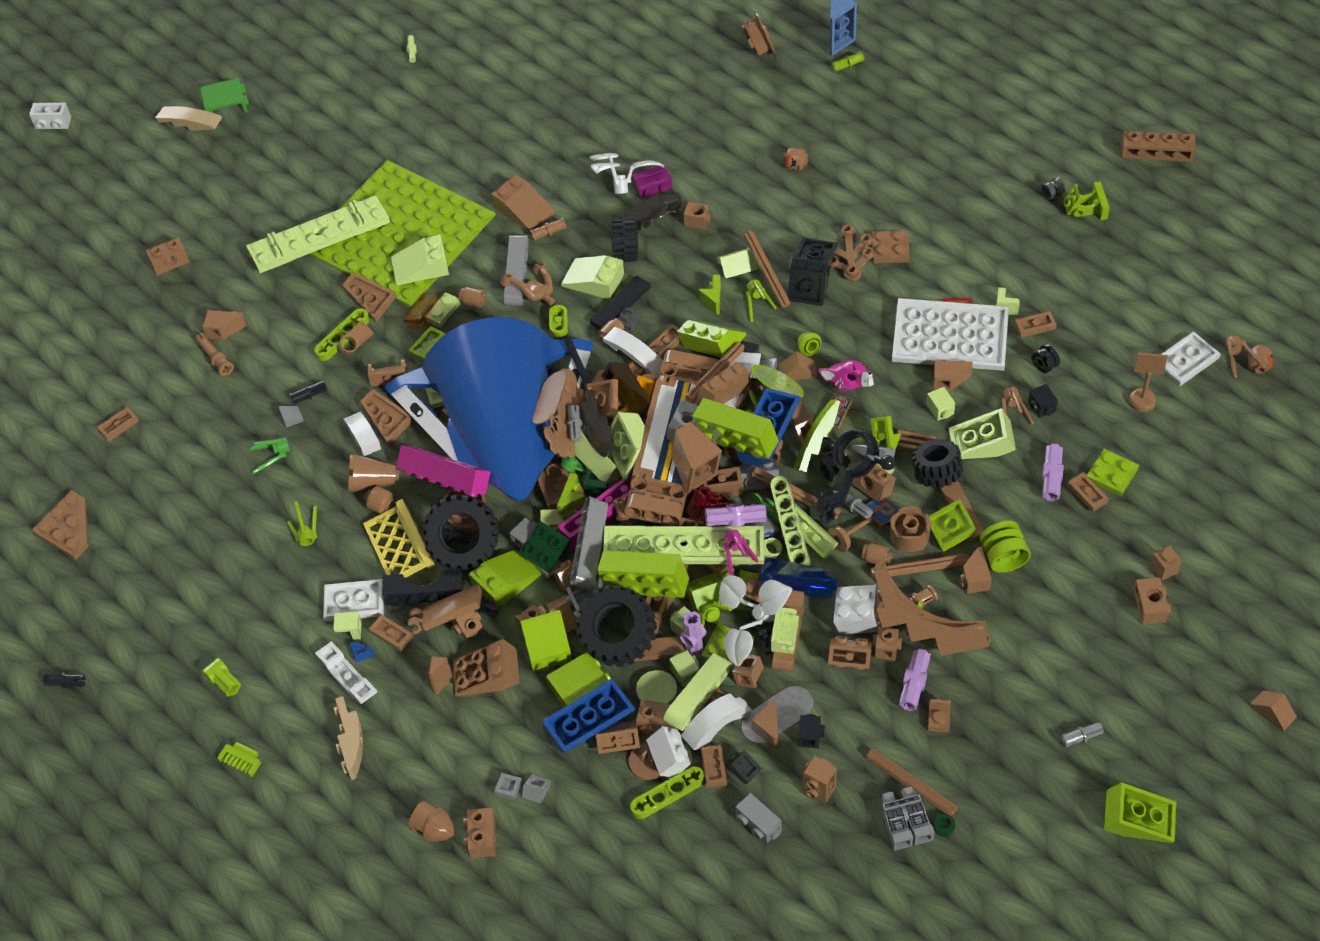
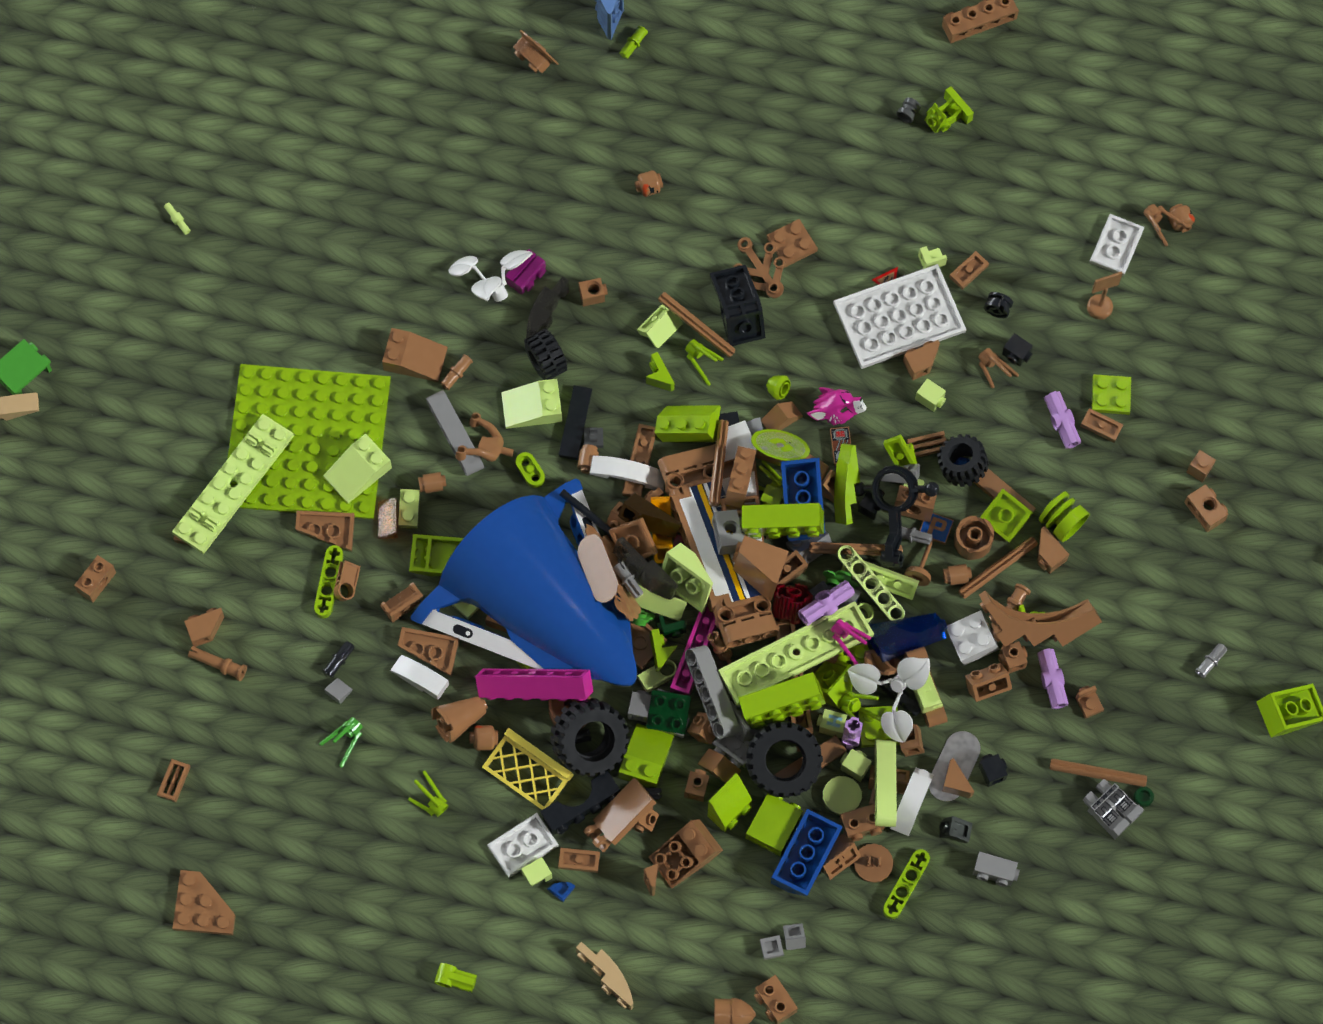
camera: 35 degrees left, 15 degrees up
(345, 674) = (565, 919): white slope -> none
(668, 751) = (890, 849): white brick -> none
(713, 766) = (931, 841): medium nougat plate -> none
(819, 779) = (1028, 810): medium nougat brick -> none
(984, 436) = (985, 412): yellowish green slope -> none

